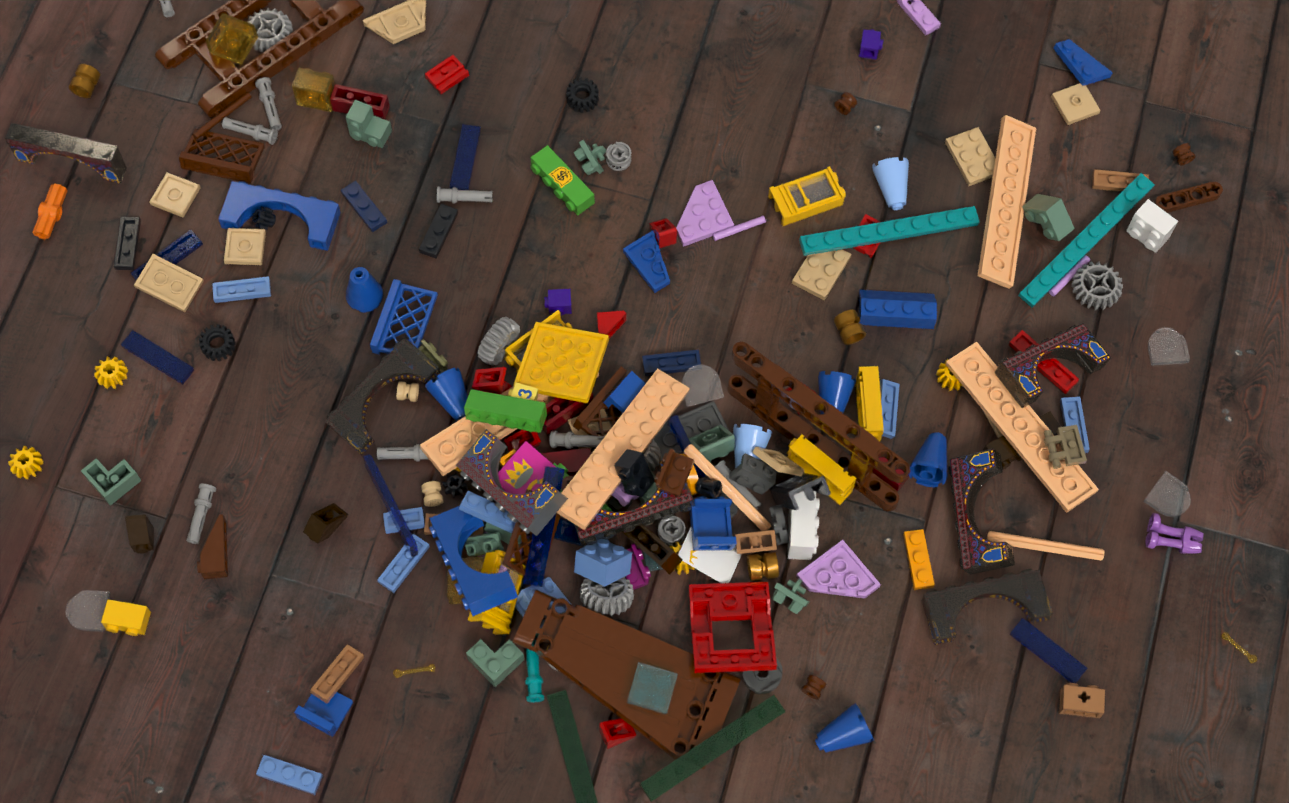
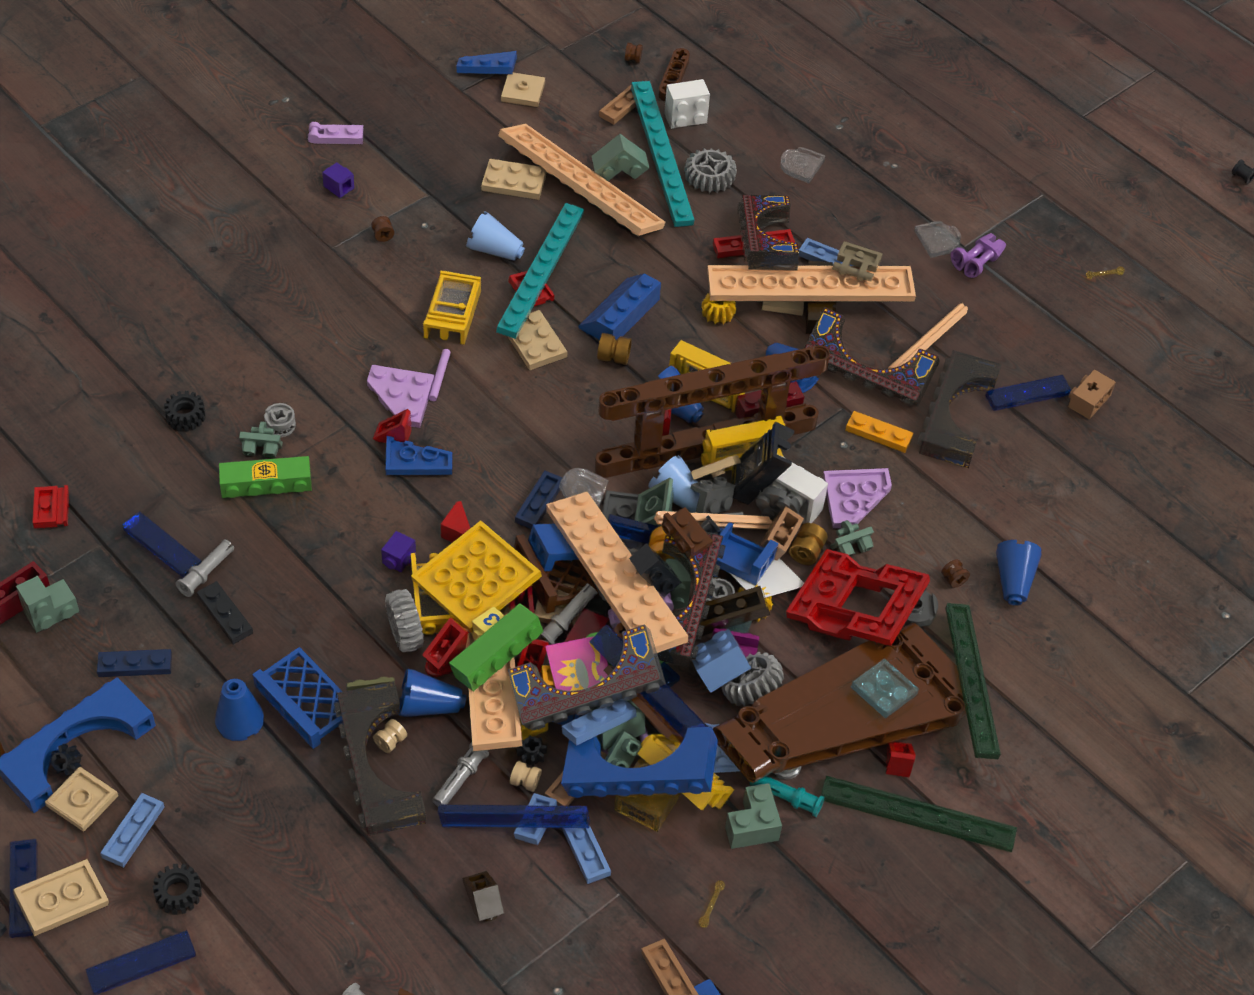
camera: 60 degrees left, 15 degrees down
(1068, 276) = (686, 185): lavender bar -> none

